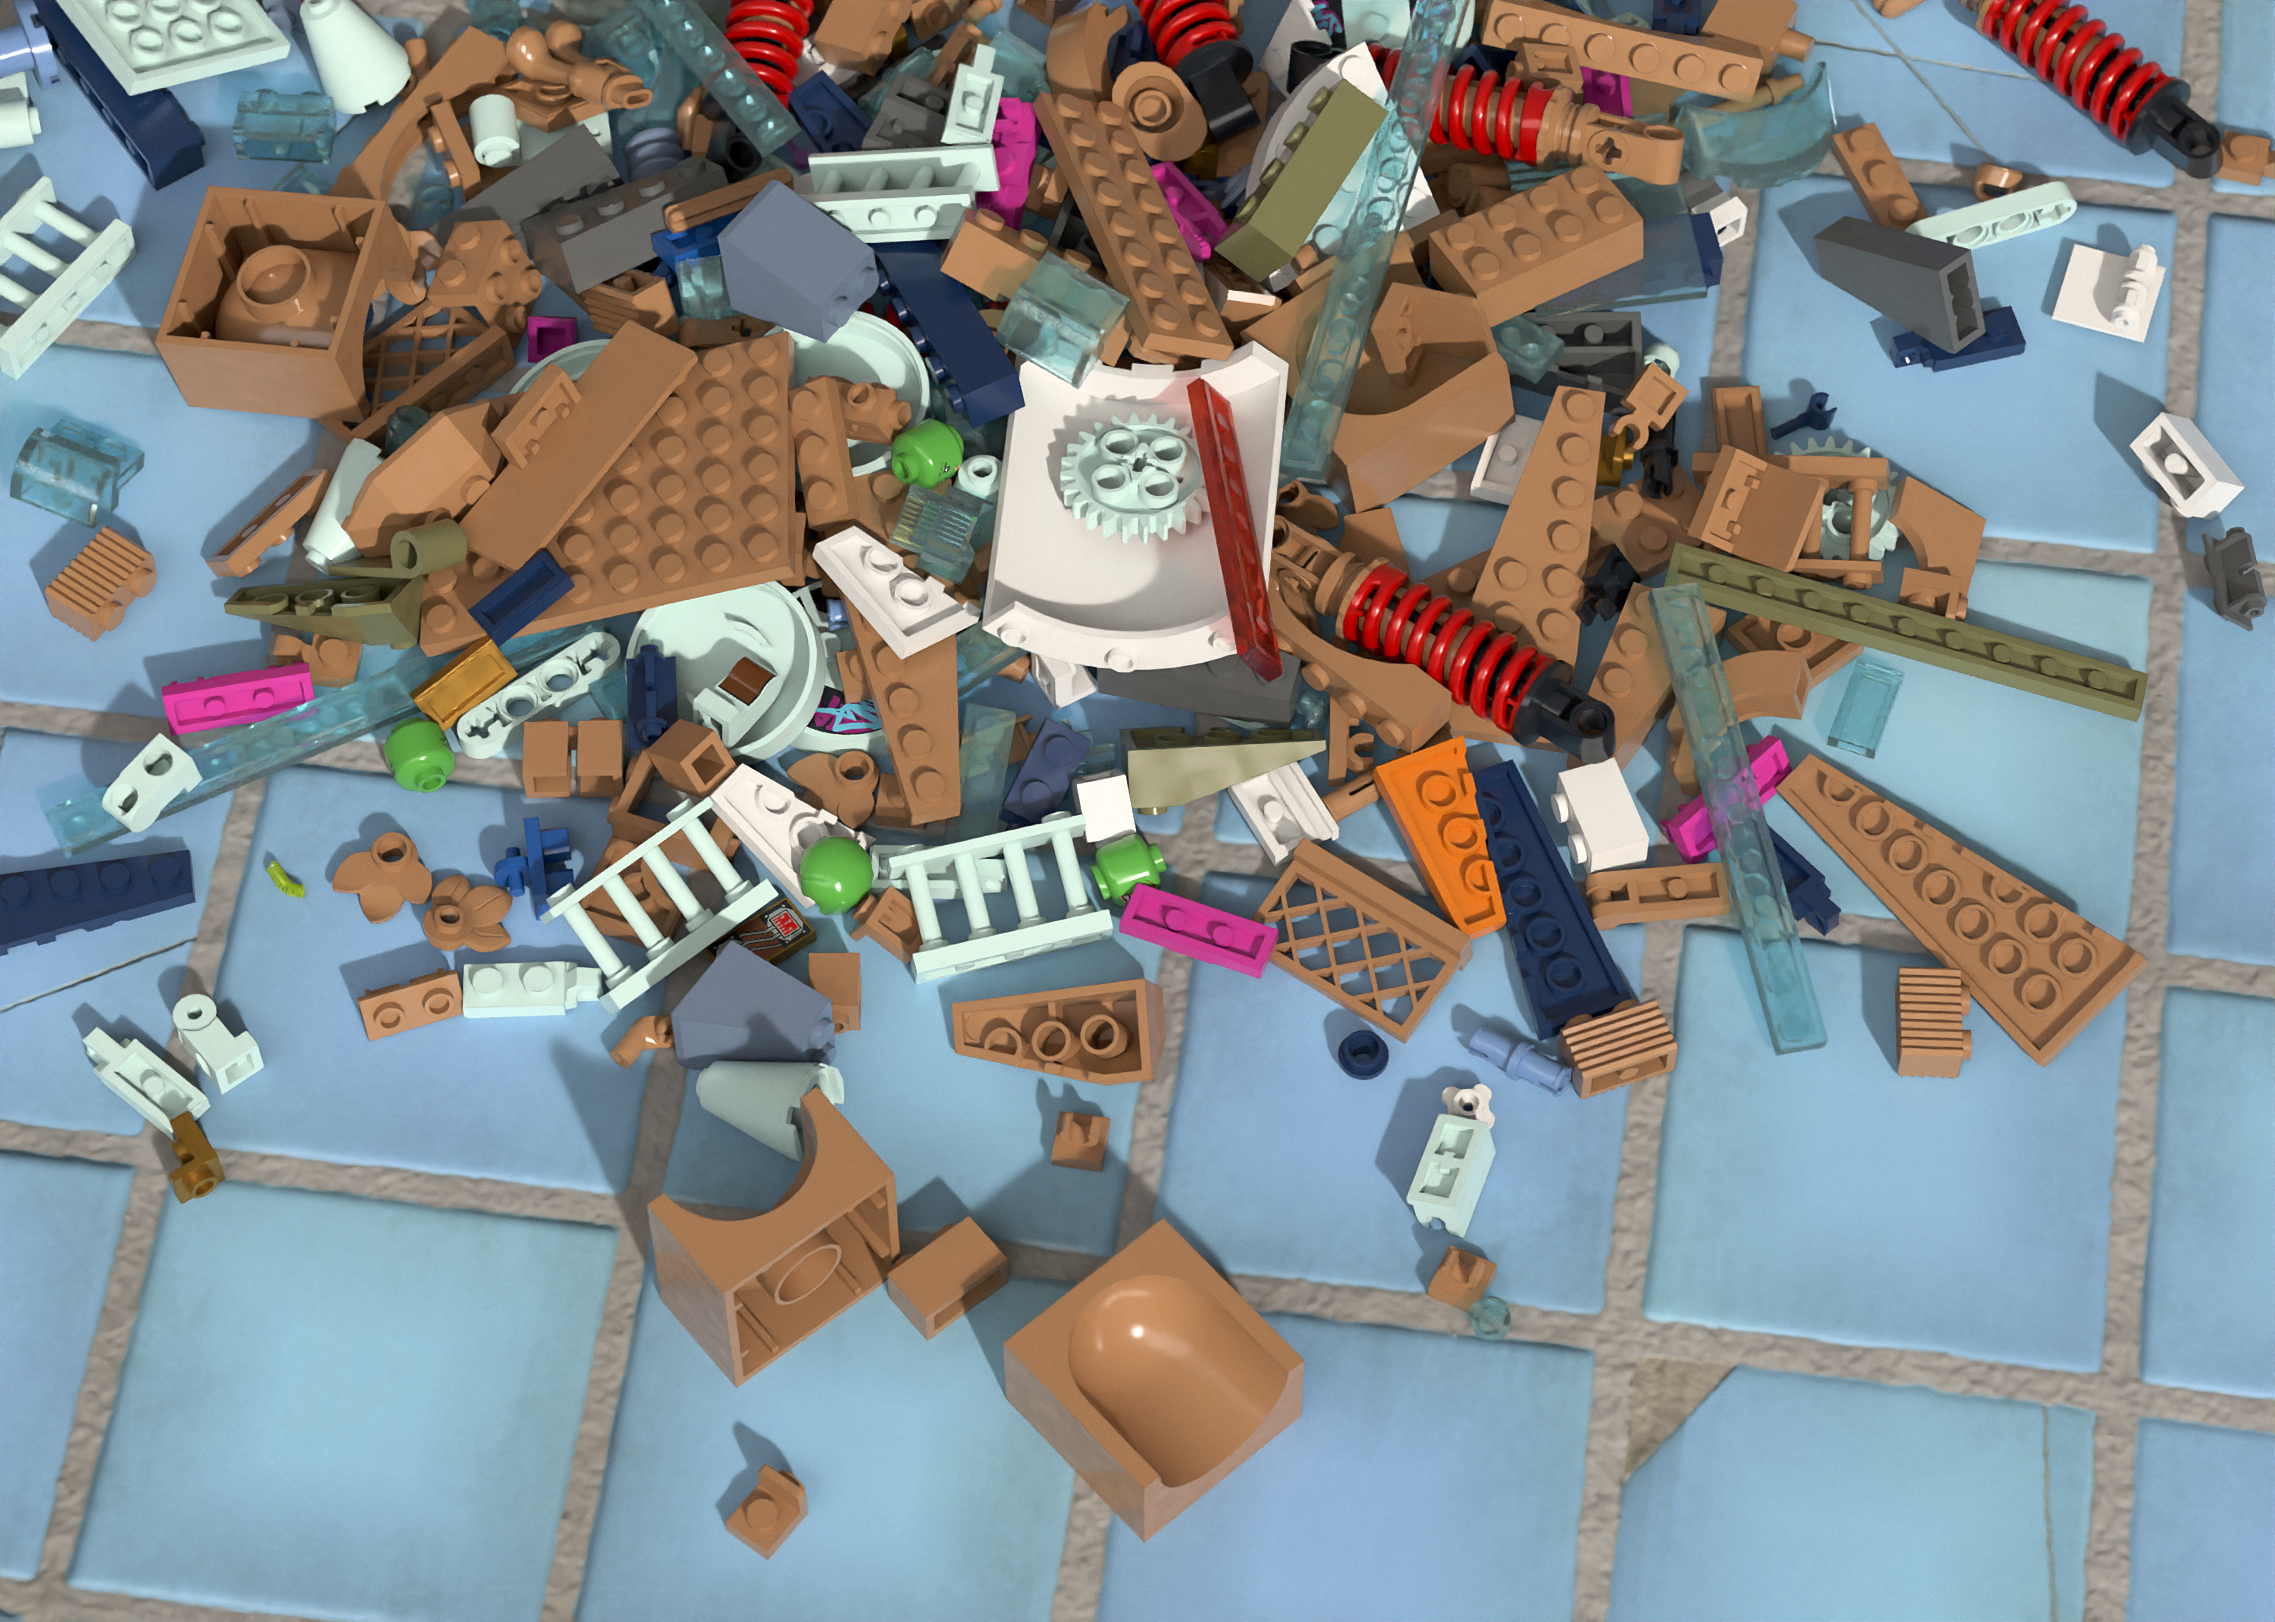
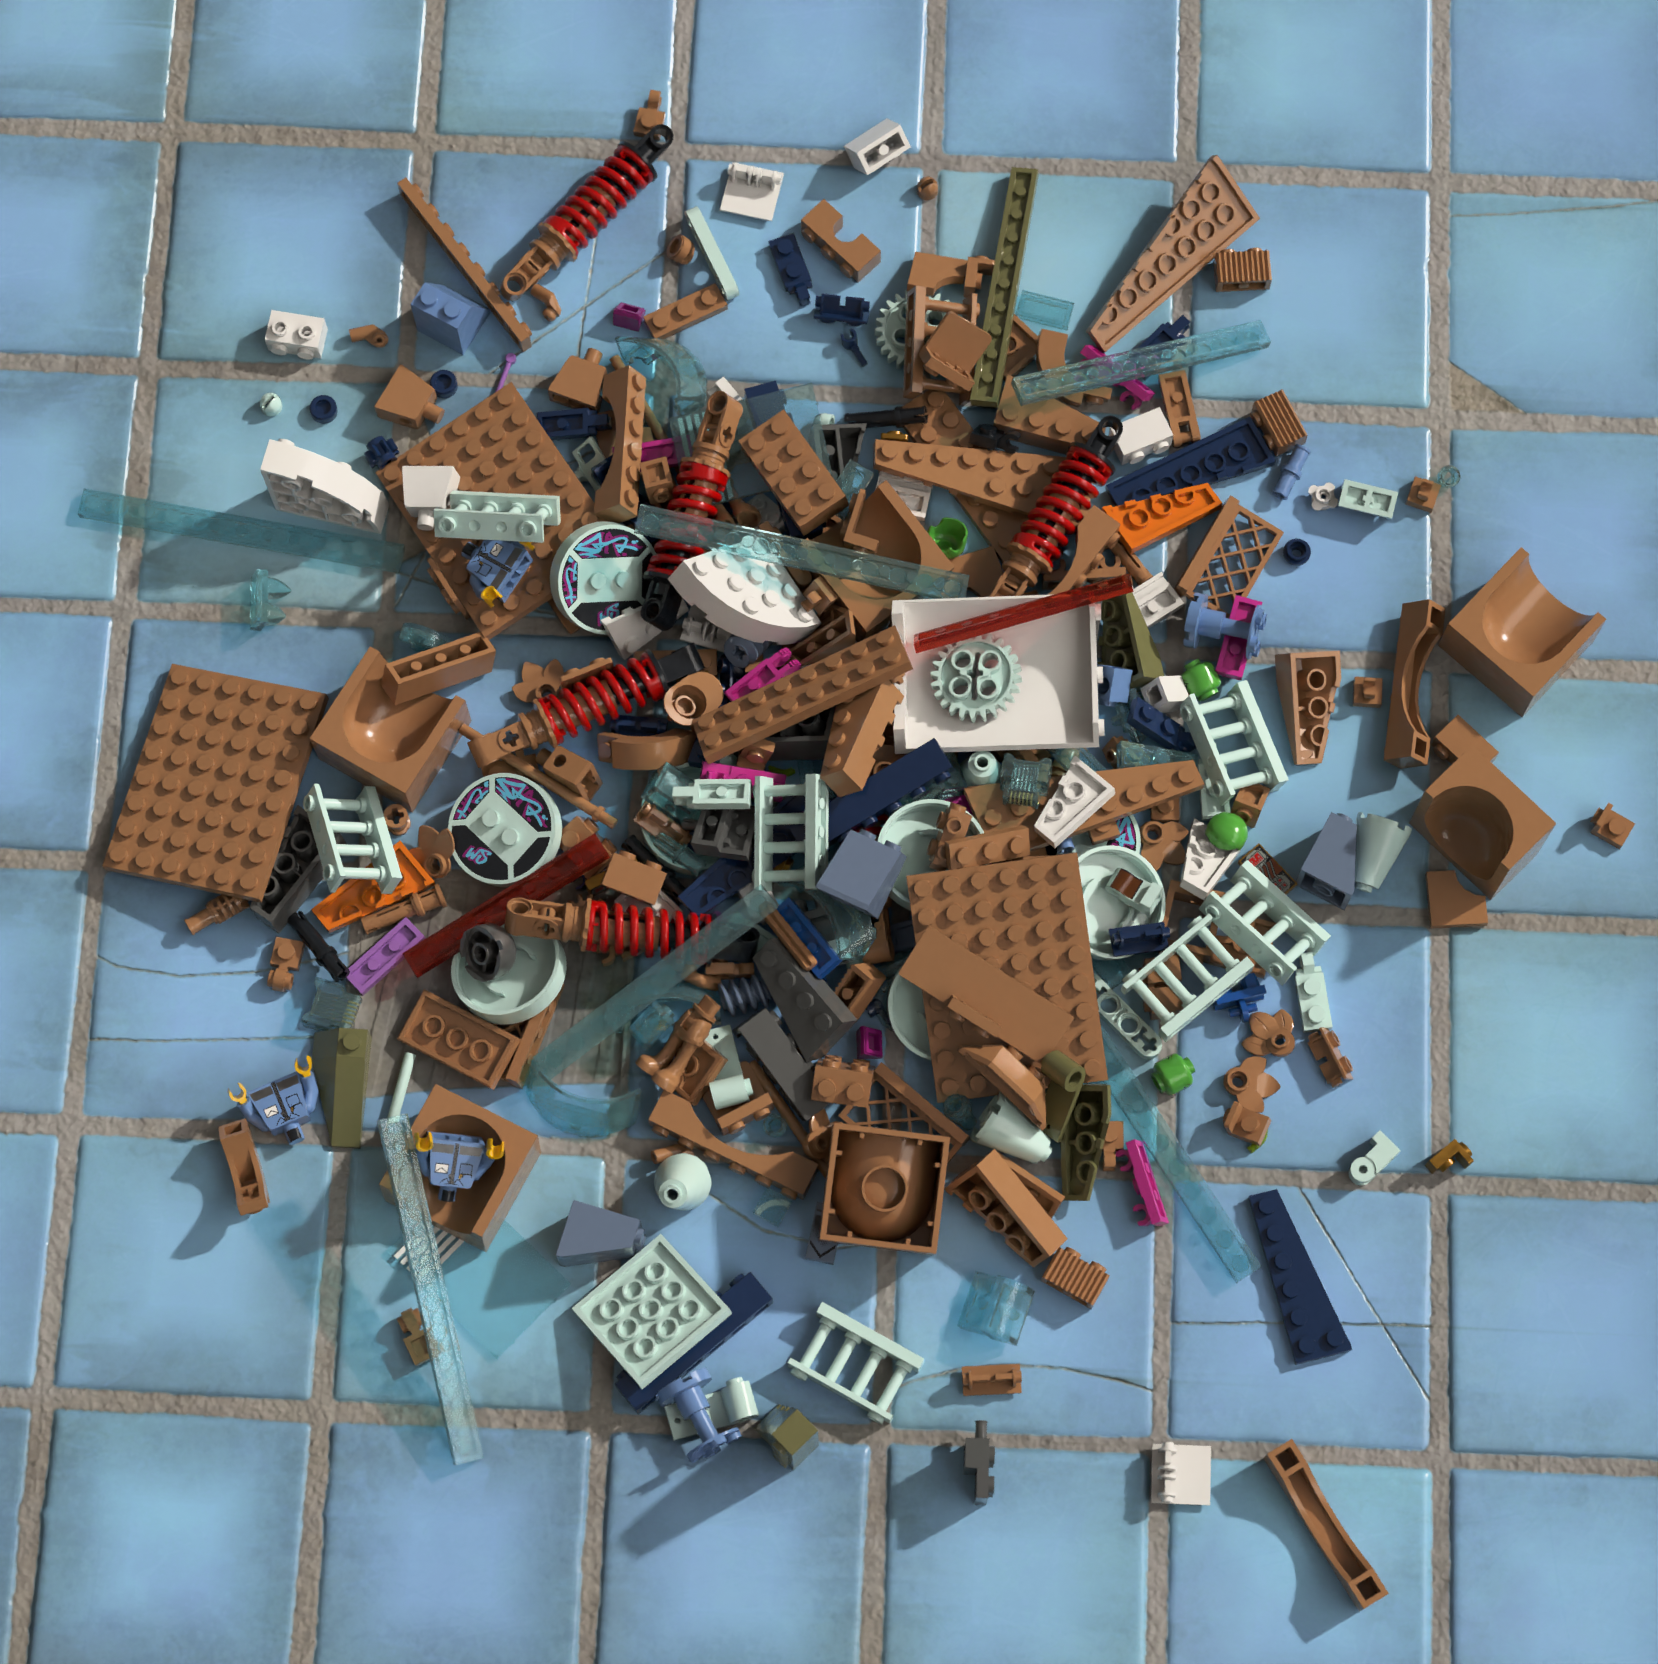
camera: 95 degrees left, 15 degrees up
(144, 1080) = (1403, 1193): light aqua hinge -> none
(150, 784) = (1222, 1216): light aqua leg -> none
(227, 491) = (1008, 1208): none -> medium nougat wedge
(285, 126) = (727, 1226): clear light blue brick -> none
(315, 854) = (1245, 1124): none -> medium nougat bracket
(463, 683) = (1126, 1054): pearl gold tile -> none
(521, 598) = (1089, 1014): dark blue tile -> none
(547, 802) = (1192, 1005): none -> light aqua fence
(634, 1246) = (1451, 903): none -> medium nougat tile
(644, 1034) = (1333, 926): medium nougat arm -> none
(691, 758) = (1181, 908): medium nougat brick -> none
(839, 980) = (1298, 827): medium nougat brick -> none
(927, 453) = (974, 793): bright green head -> none
(1001, 1181) = (1418, 633): none -> medium nougat arch
(1061, 319) = (895, 715): clear light blue brick -> none
(1126, 712) = (1114, 686): none -> medium blue brick
(1229, 869) = (1214, 624): none -> medium blue piece
(1302, 180) = (779, 593): olive wedge -> none
(1426, 511) = (950, 536): none -> bright green hair
(1651, 403) = (876, 418): medium nougat plate -> none
(1739, 418) = (864, 381): medium nougat tile -> none
(1868, 399) = (853, 313): none -> dark blue hinge
(1879, 105) = (628, 316): none -> magenta slope
(1905, 277) = (767, 292): dark grey slope -> none
(2030, 381) = (853, 257): none -> medium nougat arch
(2105, 552) = (928, 192): none -> medium nougat hinge
(2236, 594) = (956, 124): dark grey hinge -> none

